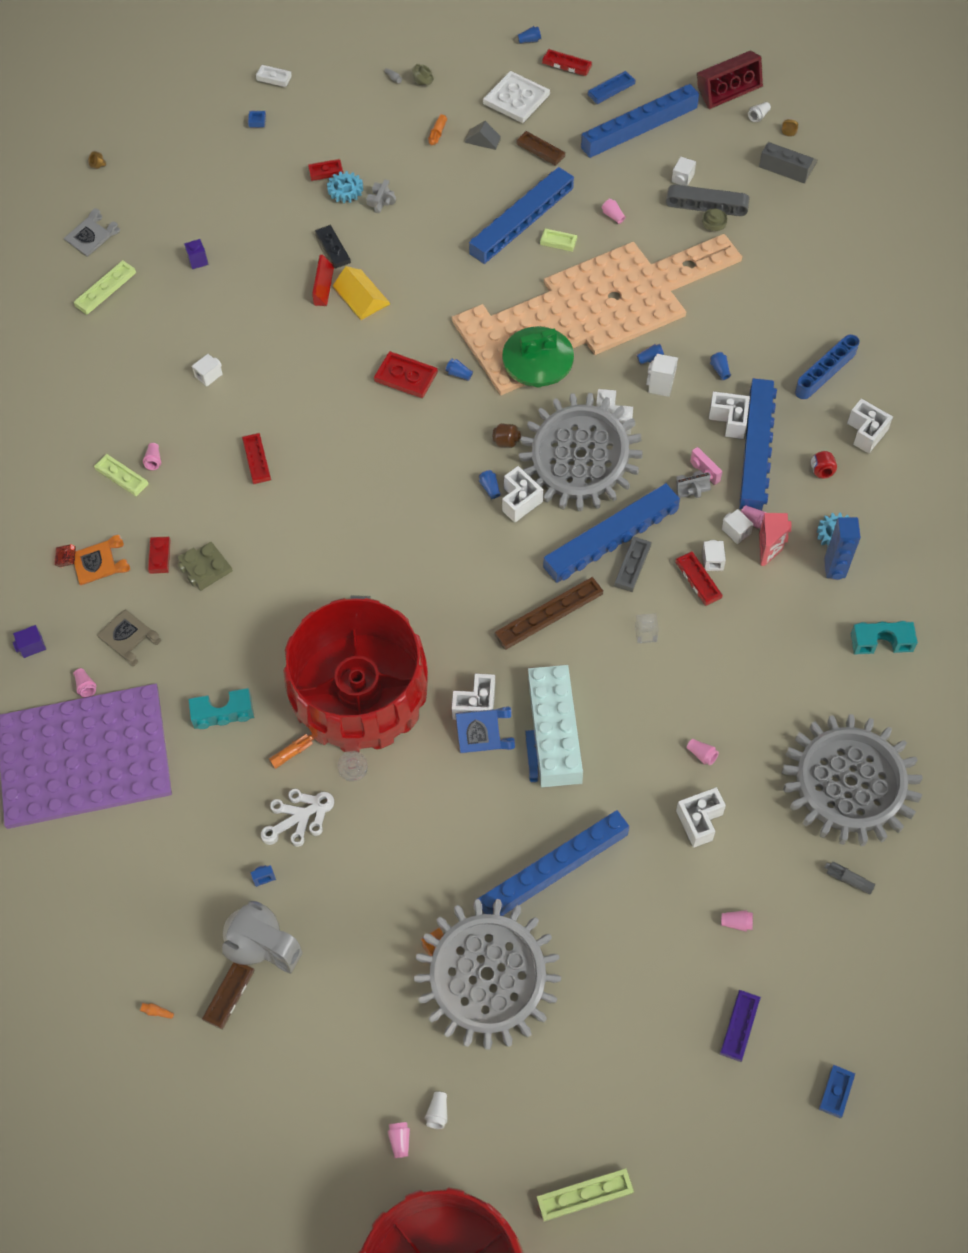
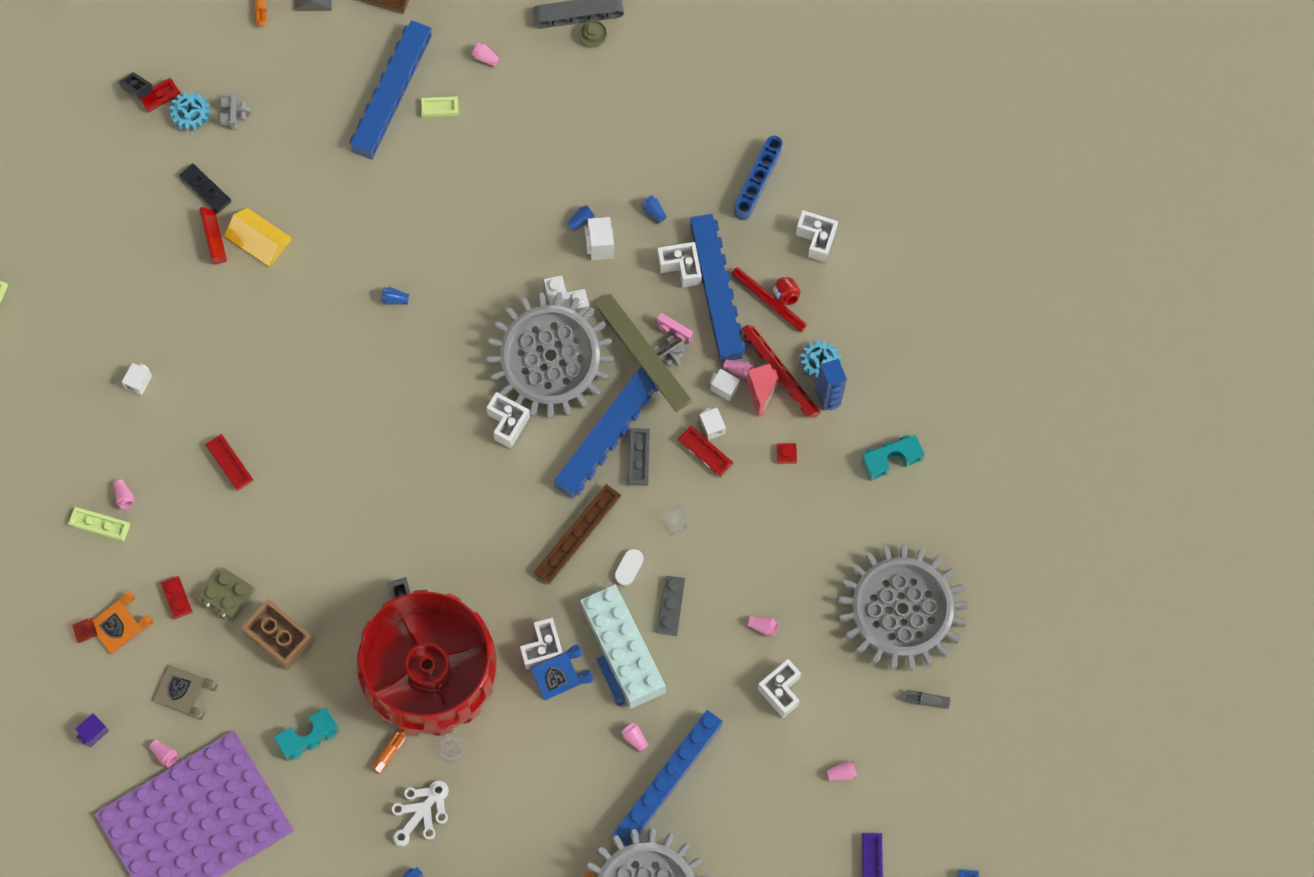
camera: 25 degrees left, 10 degrees up
(196, 254) = (65, 245): dark purple brick -> none
(232, 611) = (277, 634): none -> medium nougat brick
(257, 119) = (56, 51): blue plate -> none
(309, 156) = (136, 85): none -> black plate
(406, 374) = (342, 319): red plate -> none
(489, 483) = (472, 415): blue cone -> none
(506, 435) = (469, 357): reddish brown head -> none
(535, 814) = (635, 737): none -> bright pink cone
(538, 356) = (470, 259): green bracket -> none
(581, 305) = (493, 189): light nougat piece -> none
(587, 658) = (629, 567): none -> white tile
(616, 705) = (671, 605): none -> dark grey plate
(669, 475) = (643, 352): none -> olive tile
(778, 604) = (786, 453): none -> red plate
(798, 538) = (785, 377): none -> red plate
(804, 468) = (770, 300): none -> red axle

